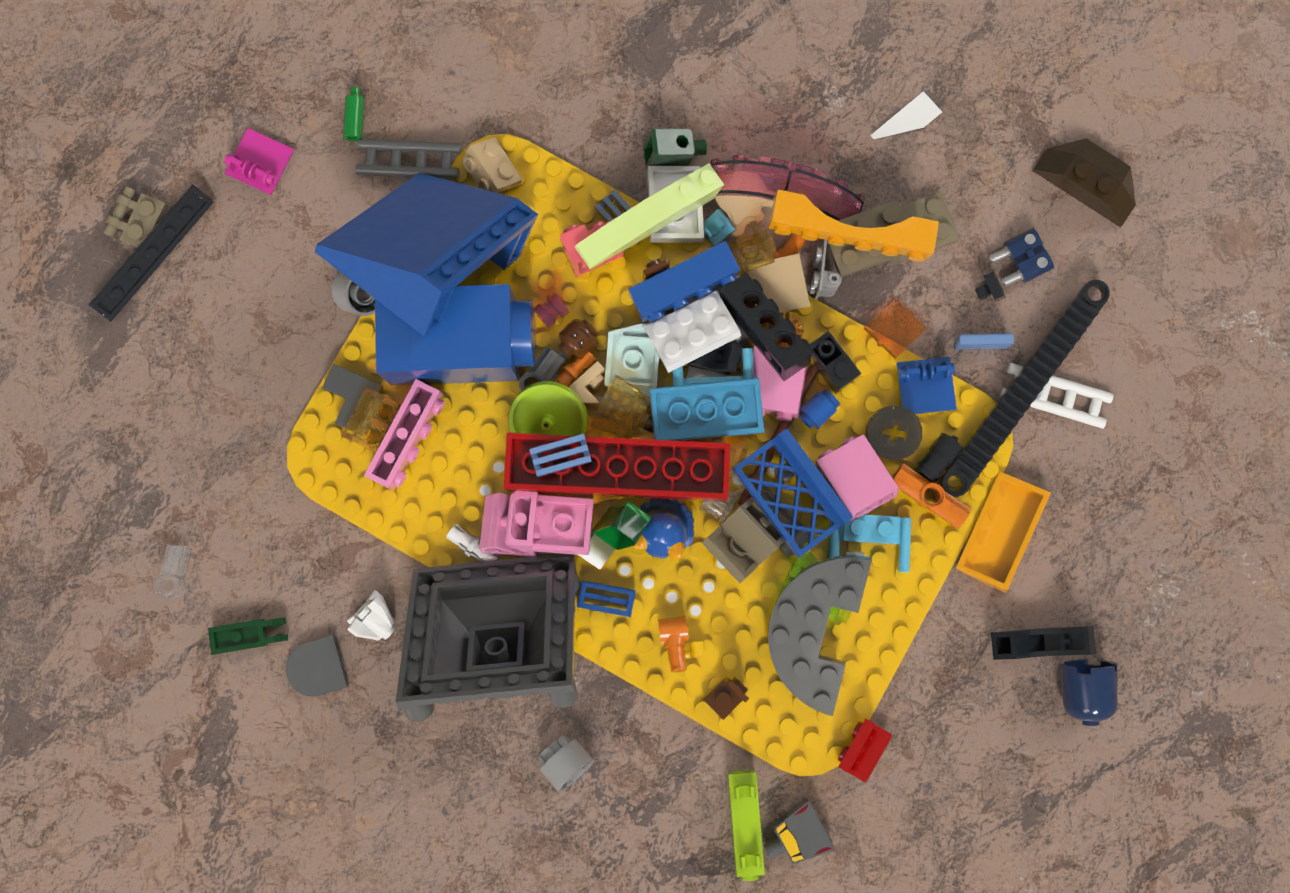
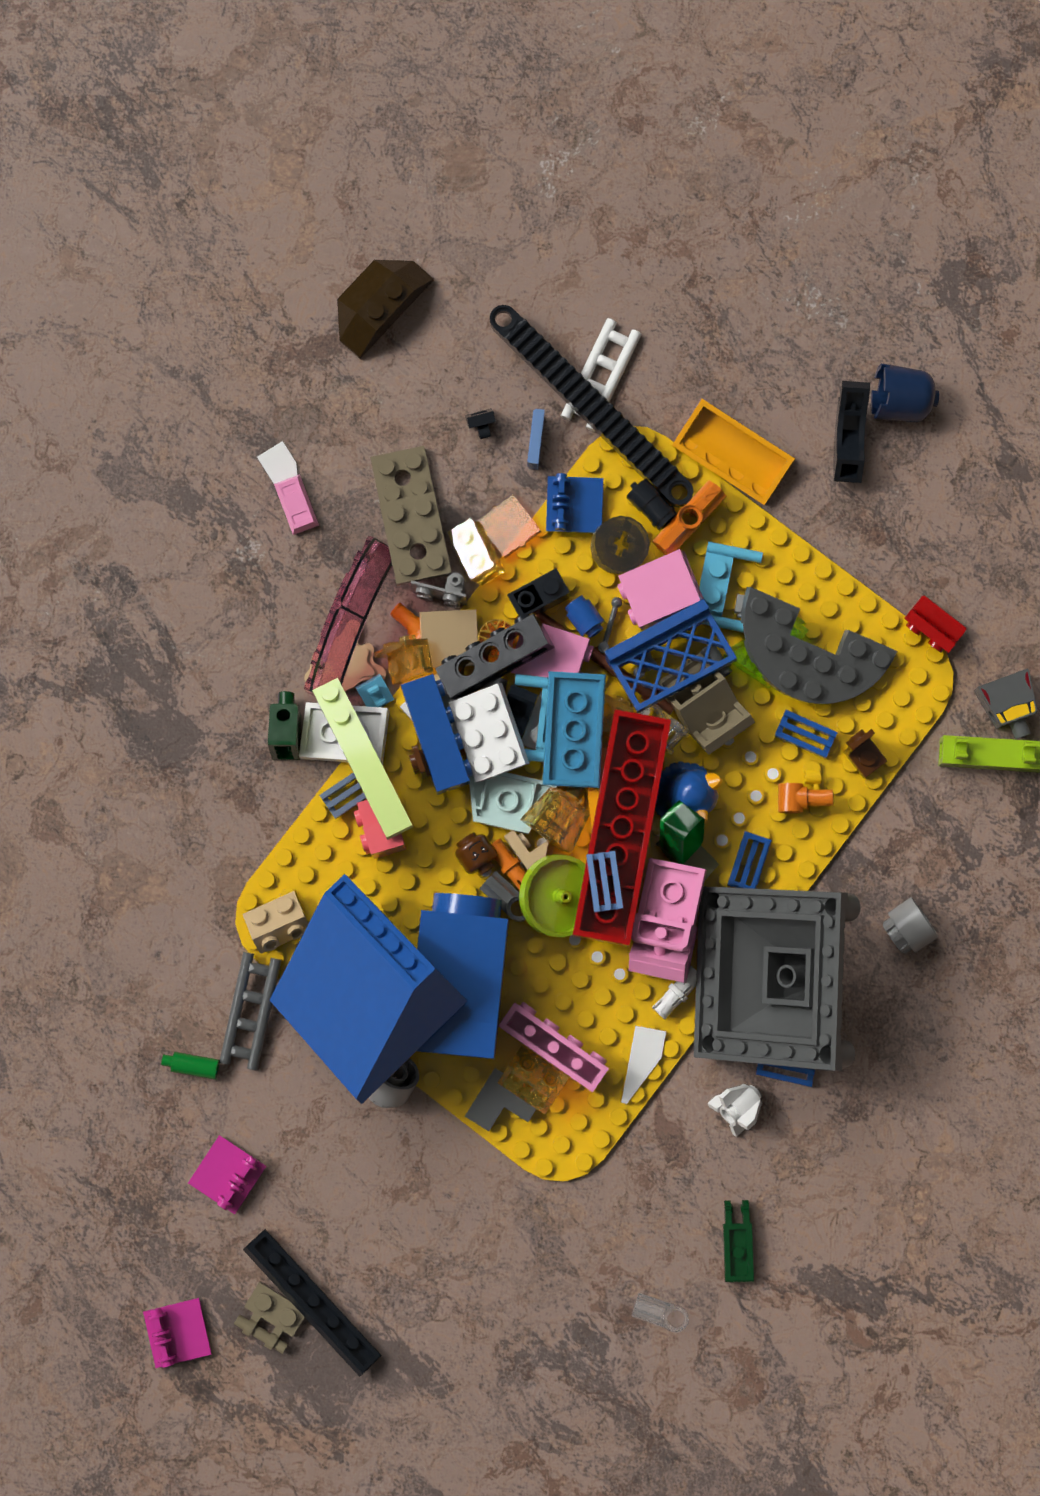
camera: 80 degrees left, 0 degrees up
(113, 139) = (177, 1333): none -> dark pink hinge
(316, 668) = (780, 1173): dark grey tile -> none
(409, 523) = (644, 1056): none -> white sticker
(548, 312) = (440, 877): clear pink wheel -> none
(744, 614) = (808, 723): none -> blue tile
(797, 215) = (387, 605): light orange arch -> none
(837, 438) = (616, 603): none -> dark grey hinge
(865, 299) = (476, 551): none -> clear yellow brick
(884, 132) = (296, 504): none -> bright pink tile
(1027, 255) = (453, 379): dark blue piece -> none

